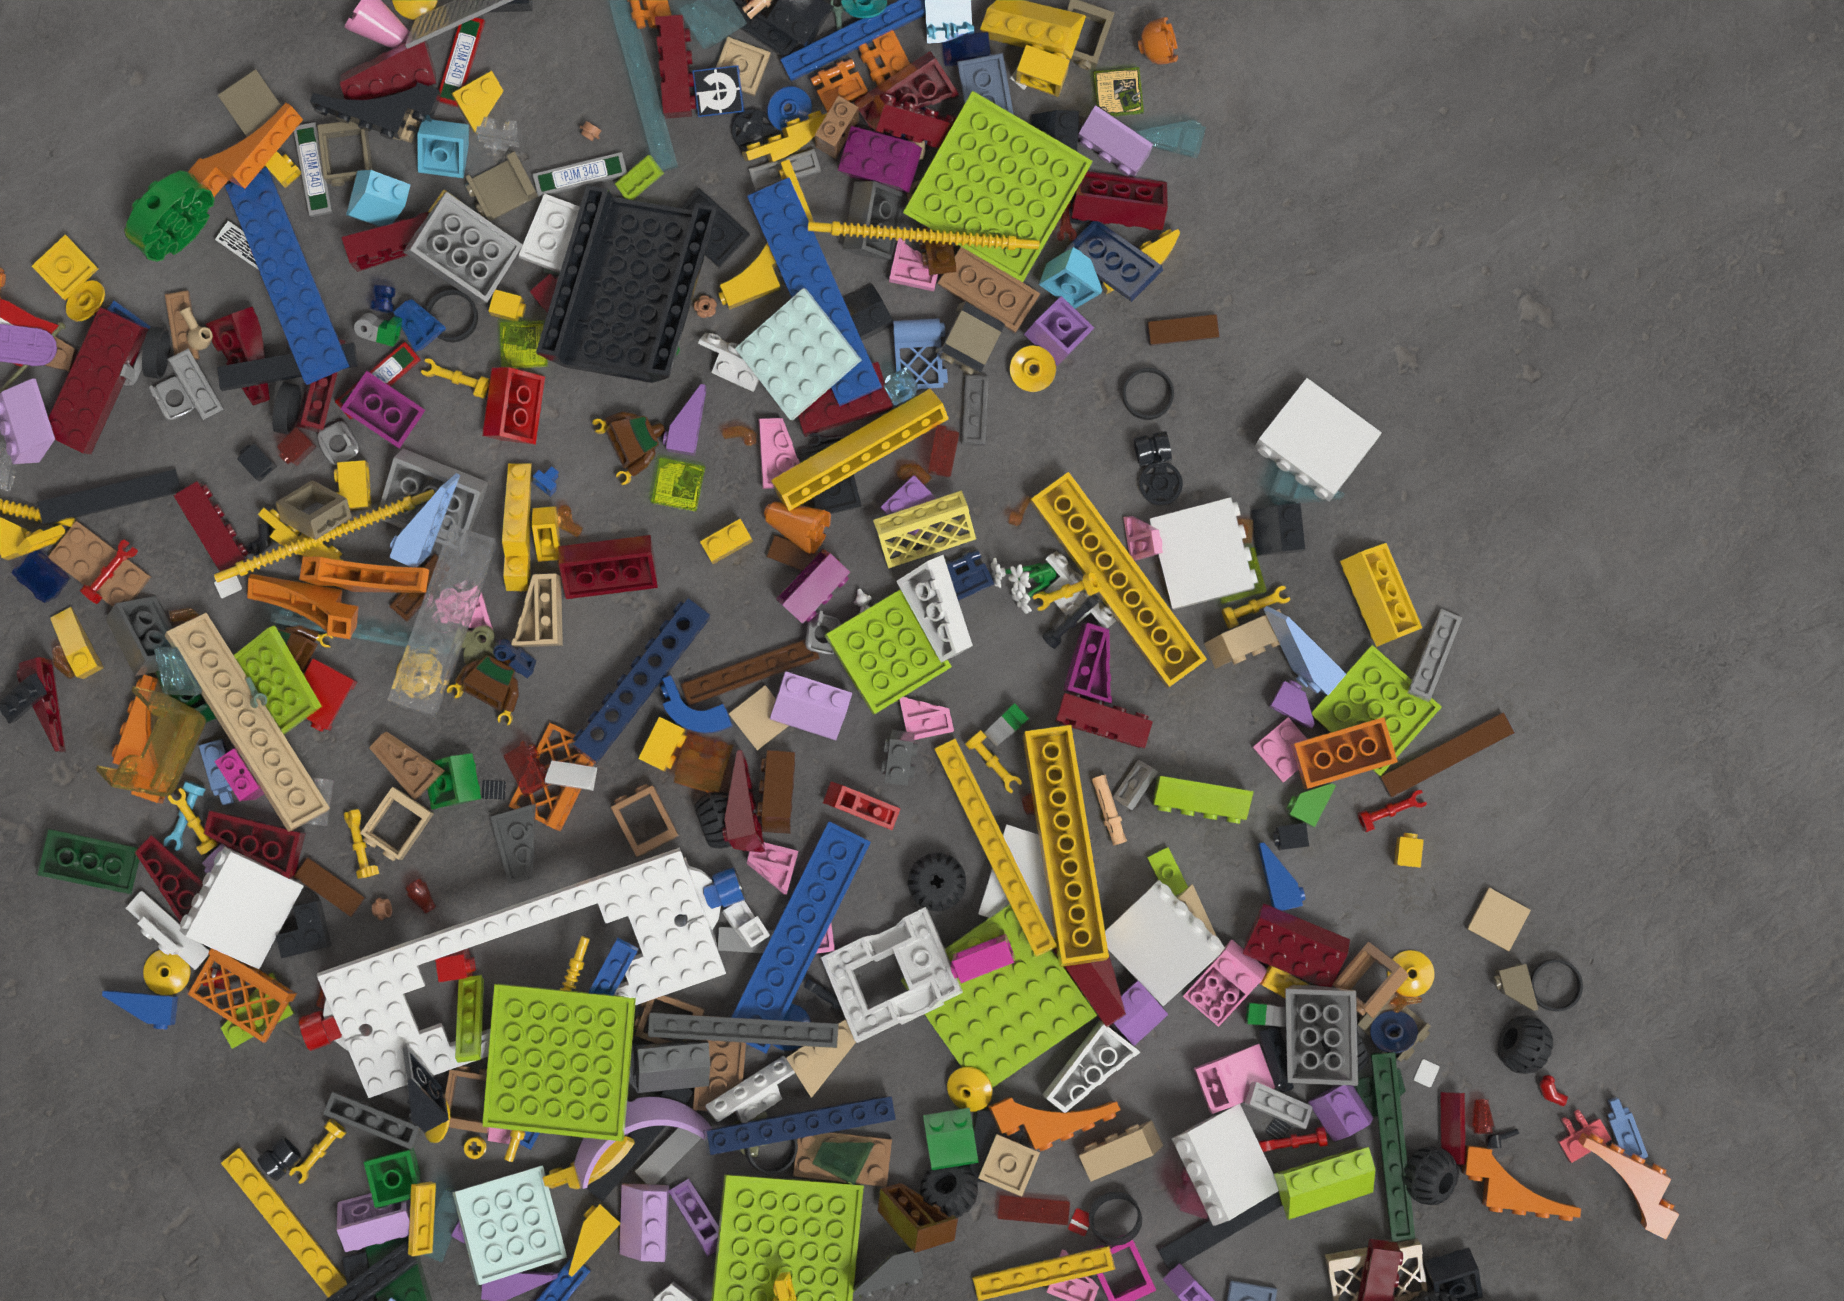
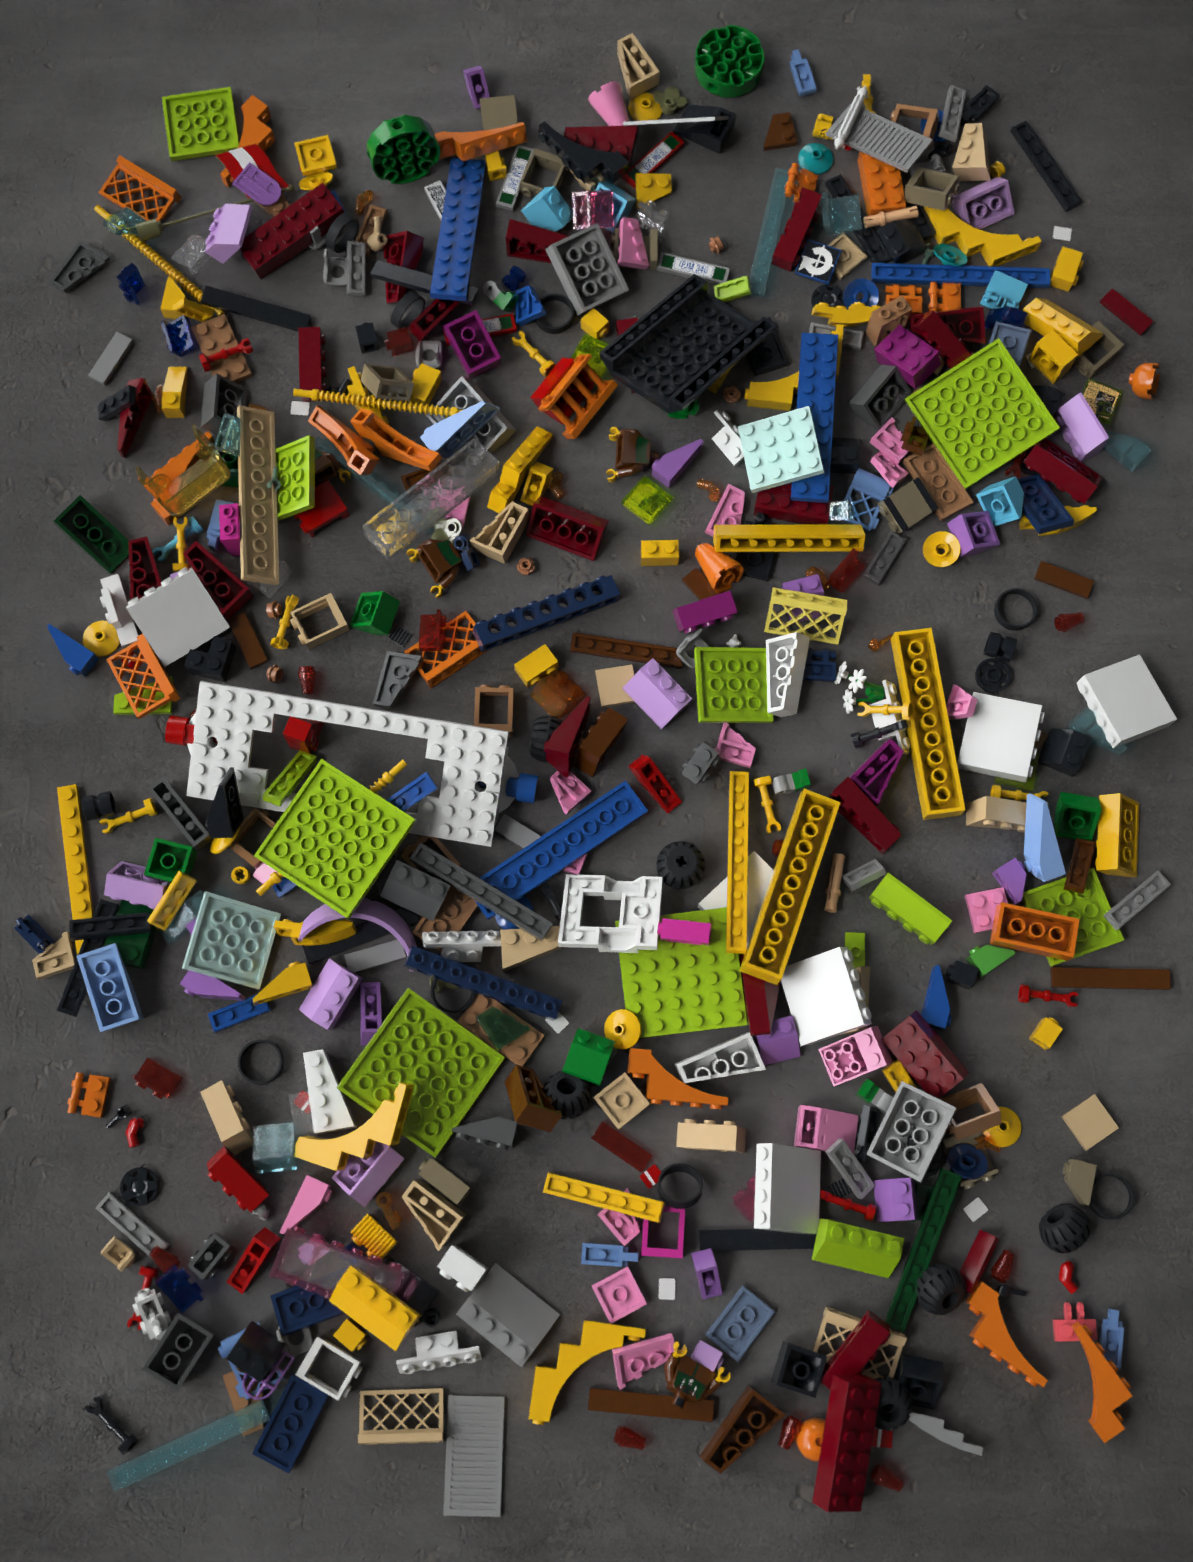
camera: 30 degrees right, 10 degrees down
(151, 294) = (363, 199): none -> clear orange arm
(202, 77) = (476, 84): none -> medium lavender slope
(339, 837) = (274, 610): none -> nougat plate
(405, 764) = (349, 585): medium nougat wing -> none
(427, 168) = (592, 208): none -> clear pink slope
(496, 186) = (632, 247): none -> bright pink wing
(546, 481) = (556, 449): blue tile -> none
(550, 233) = (650, 292): white plate -> none
(557, 408) = (594, 401): none -> orange fence
(571, 775) = (460, 650): white slope -> none
(593, 635) = (526, 570): none -> nougat plate
(704, 722) = (573, 665): blue arch -> none
(746, 924) = (524, 821): white slope -> none
(837, 228) = (970, 454): yellow hose -> none
(901, 1118) = (558, 1024): none -> white sticker
(927, 304) = (889, 469): none -> bright pink wing
(1211, 377) = (1067, 621): none -> clear red cone
(1327, 597) = (1076, 816): none -> green slope
(1356, 651) = (1079, 865): none -> reddish brown tile

